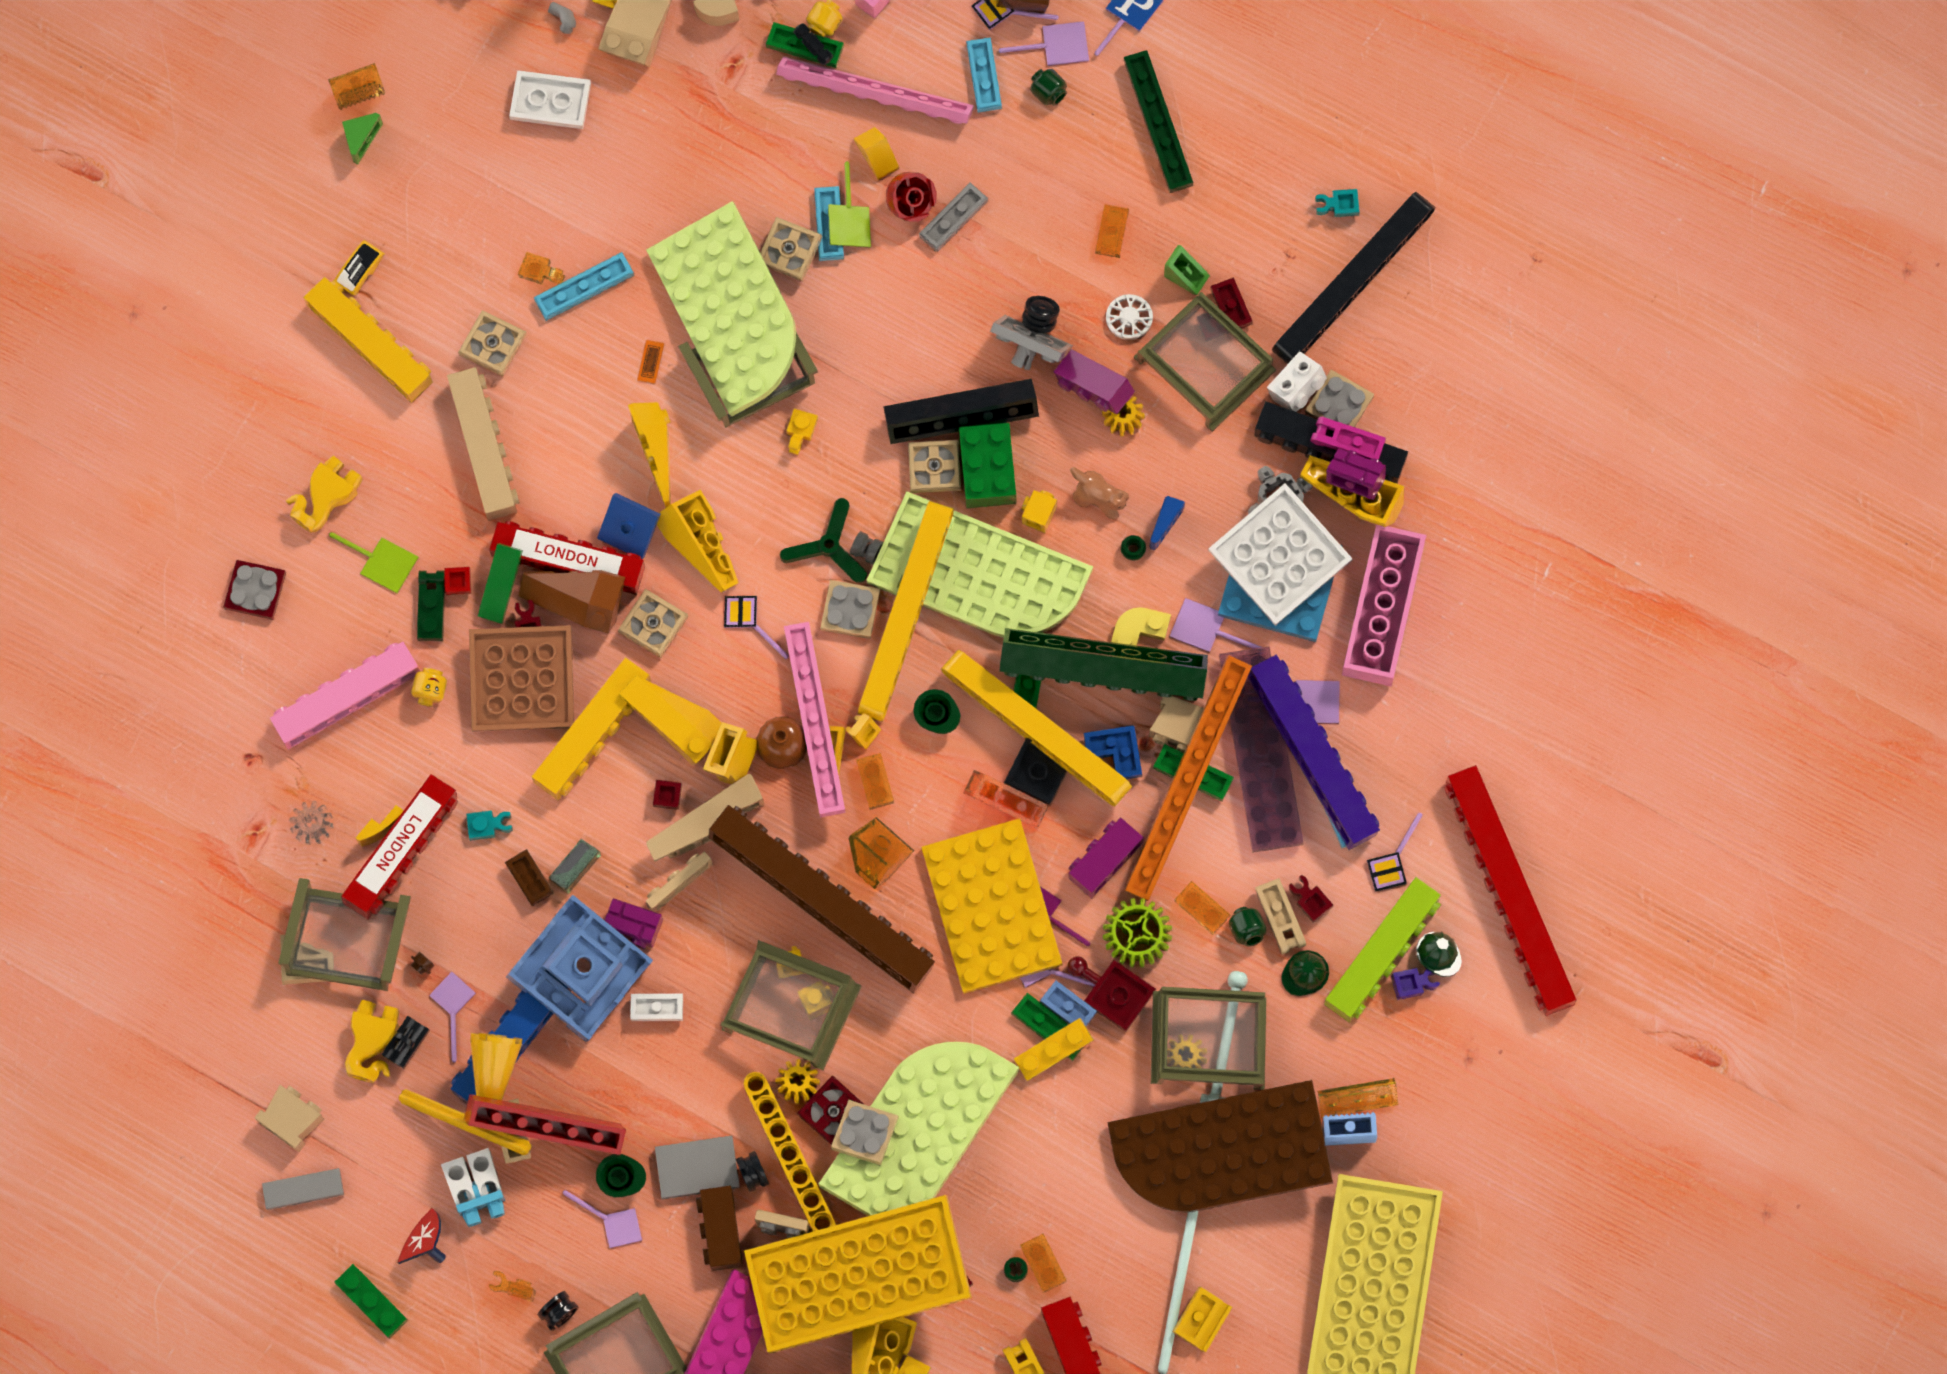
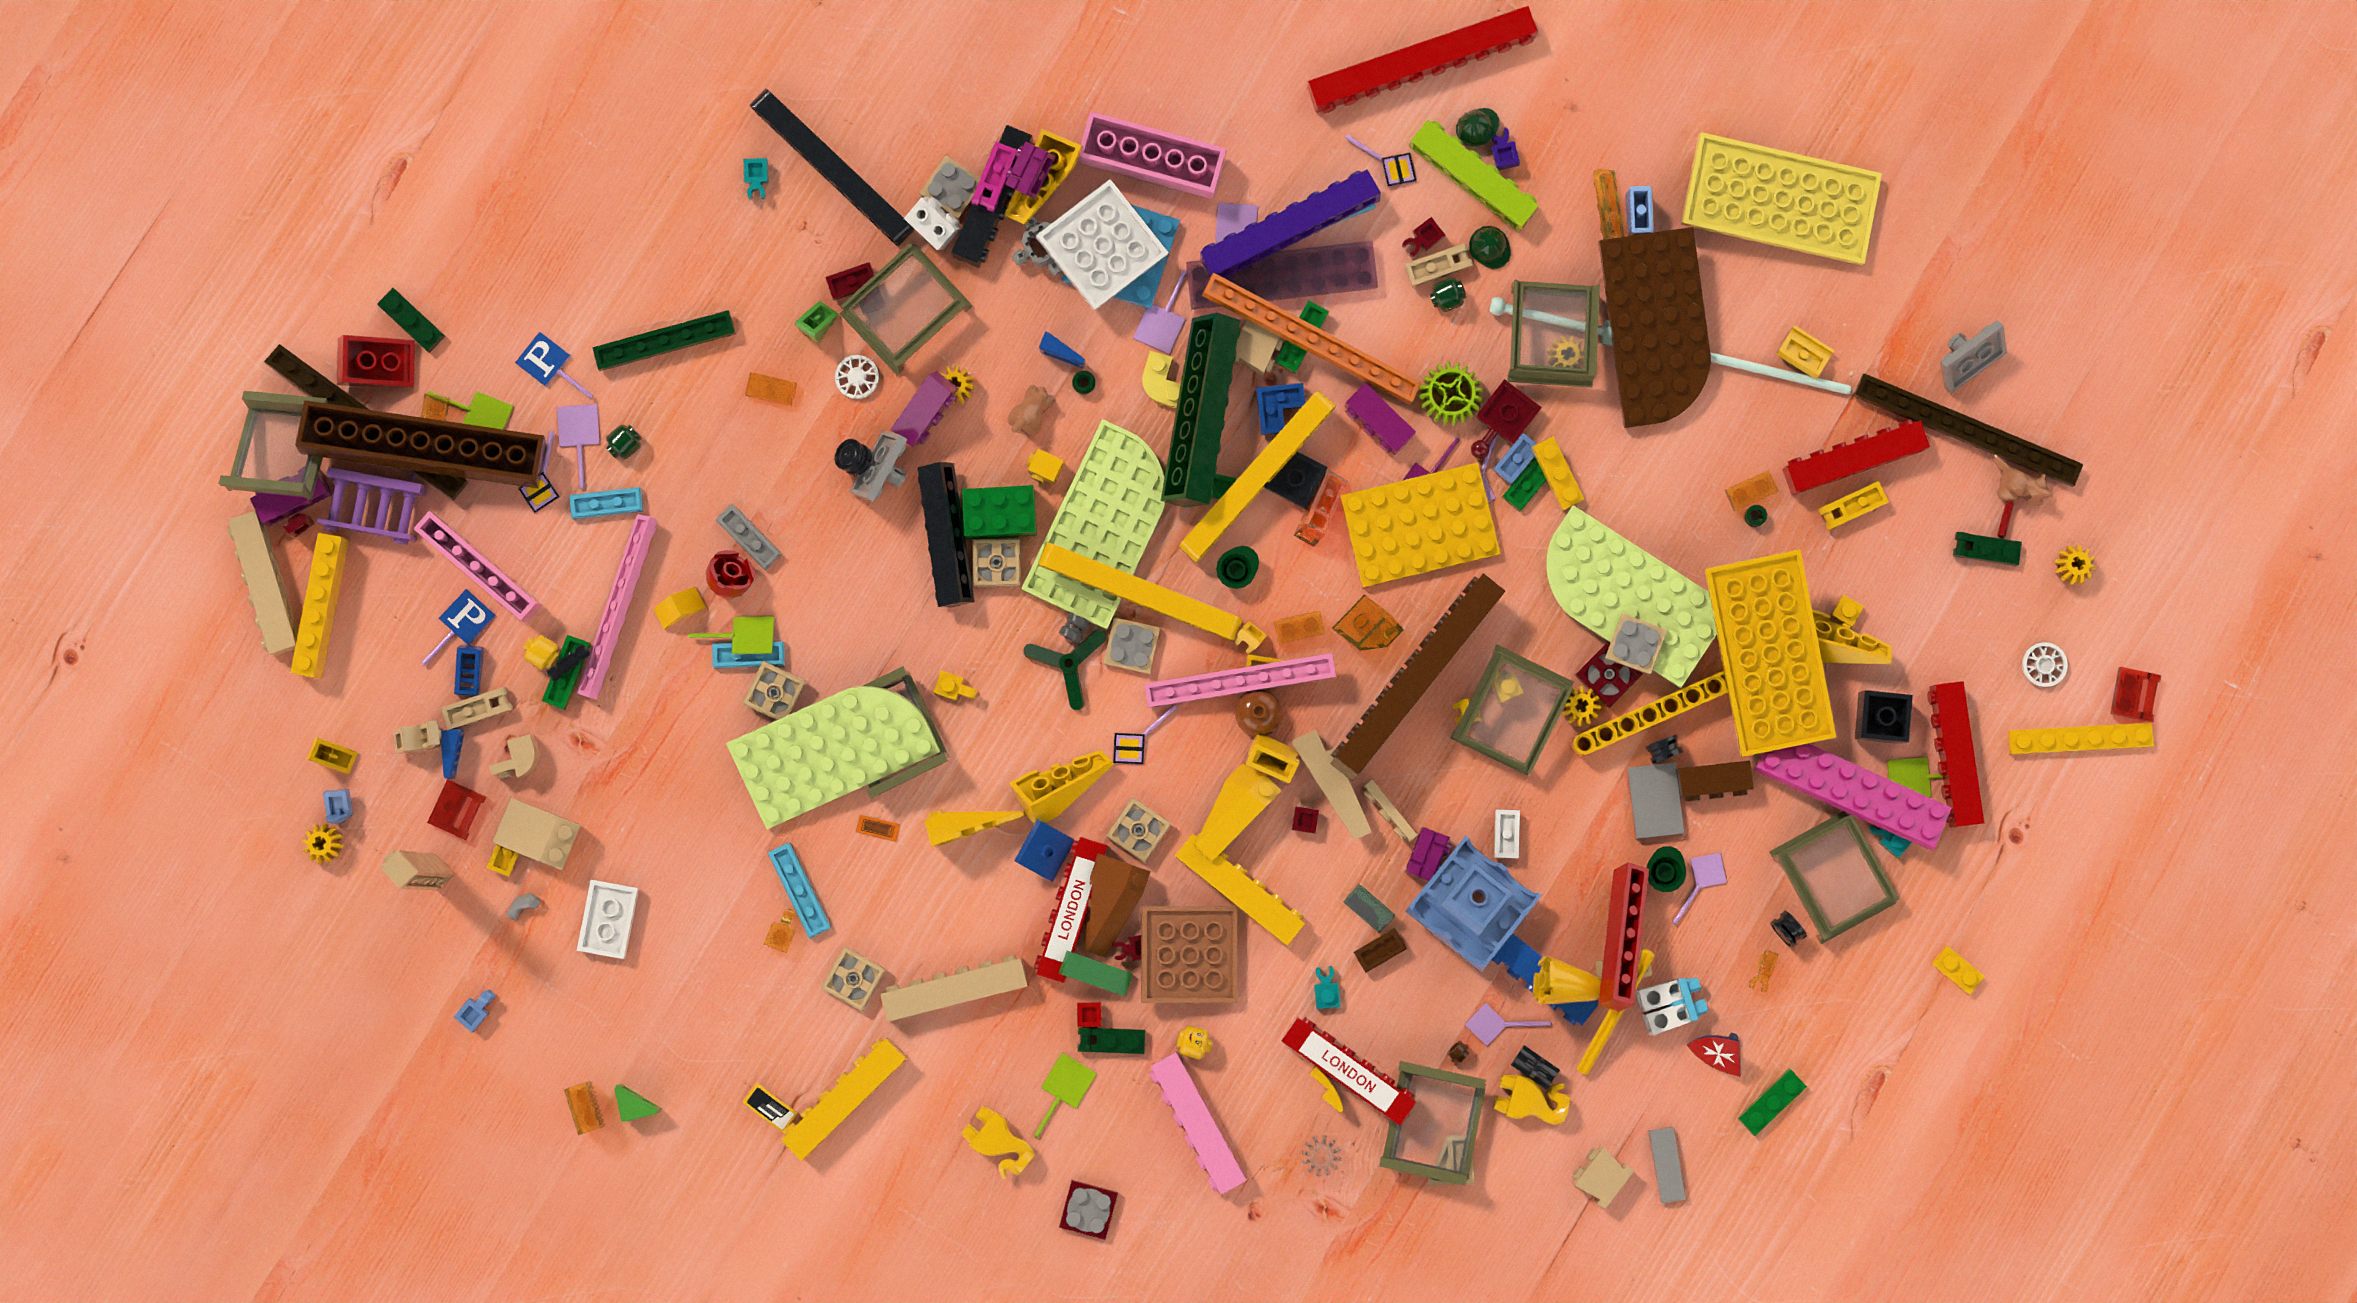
camera: 90 degrees left, 10 degrees up
(772, 1223) = (1714, 728): tan piece -> none
(1202, 907) = (1428, 334): clear yellow plate -> none

